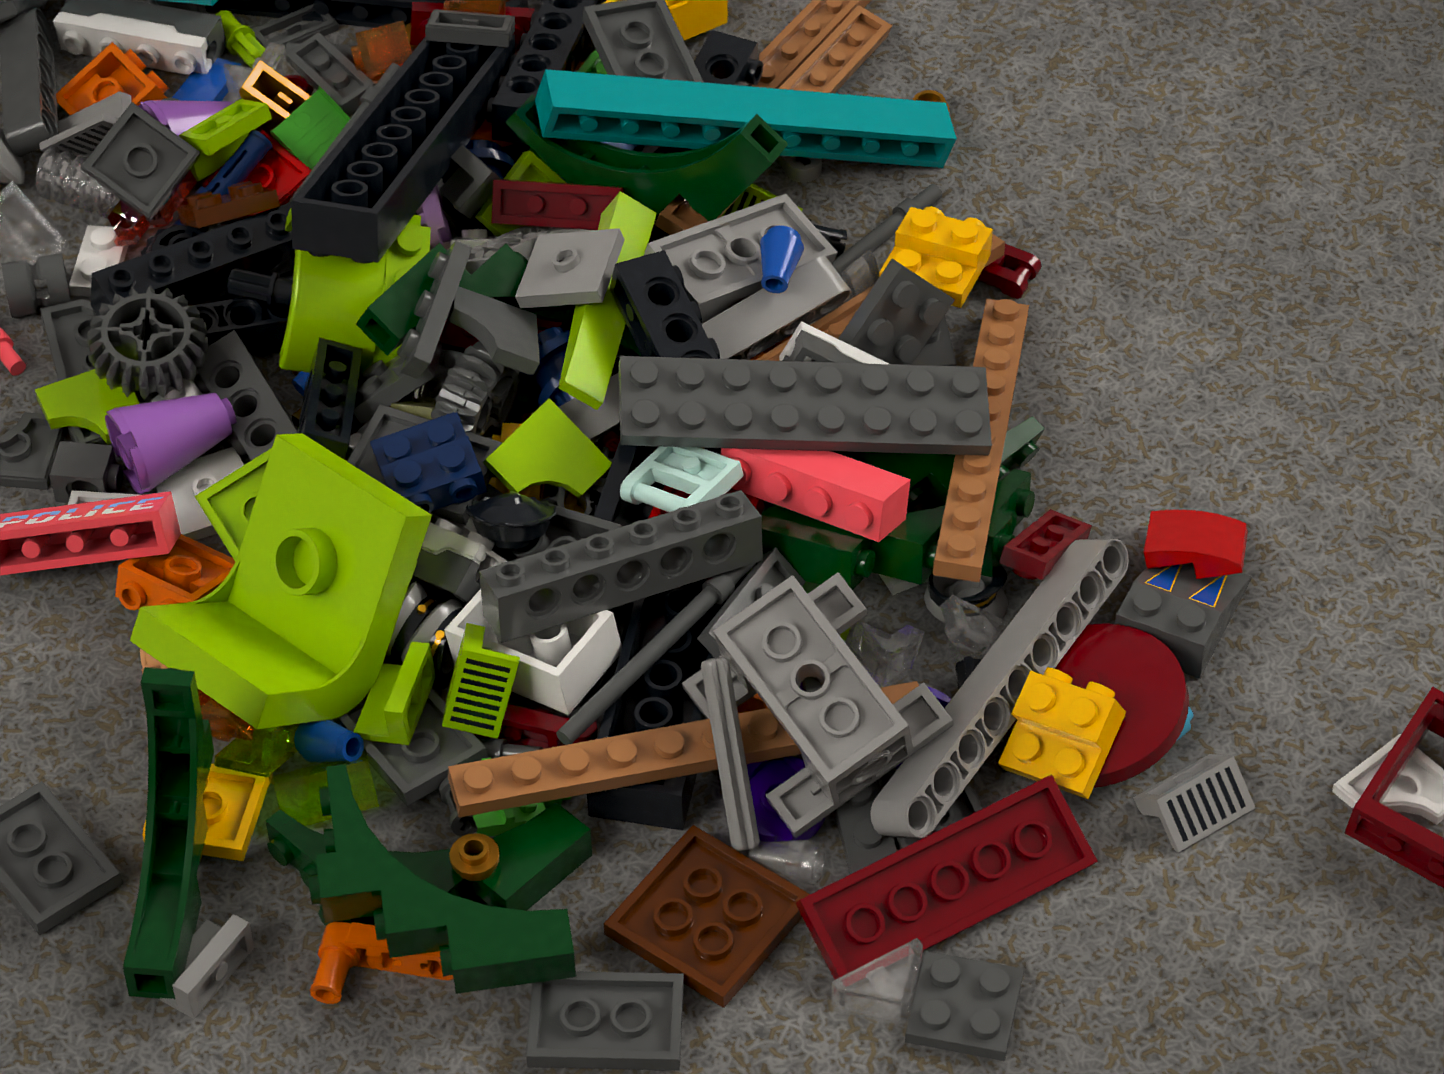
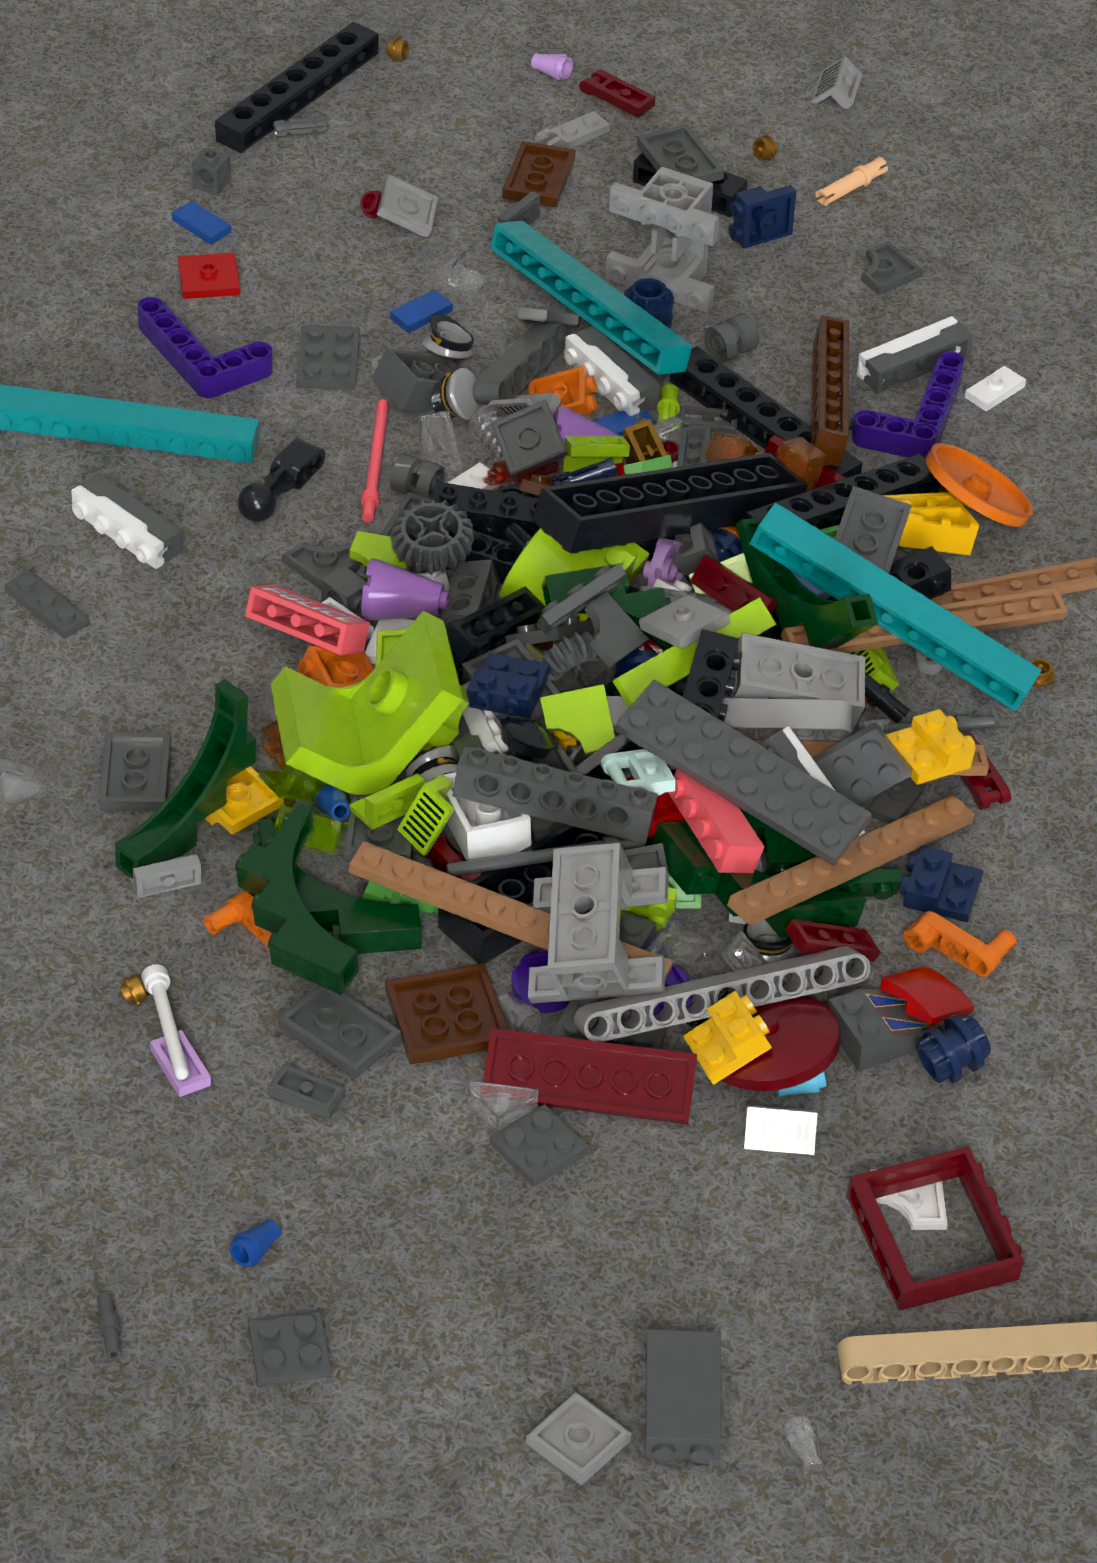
camera: 35 degrees right, 5 degrees down
(470, 28) = (782, 464): dark grey tile -> none
(474, 867) = (343, 901): pearl gold plate -> none
(730, 753) = (522, 928): light grey axle -> none
(780, 254) = (815, 684): blue cone -> none
(1073, 407) = (940, 884): none -> dark blue plate
(1125, 464) = (936, 932): none -> orange beam
(1284, 585) = (949, 1051): none -> dark blue piece

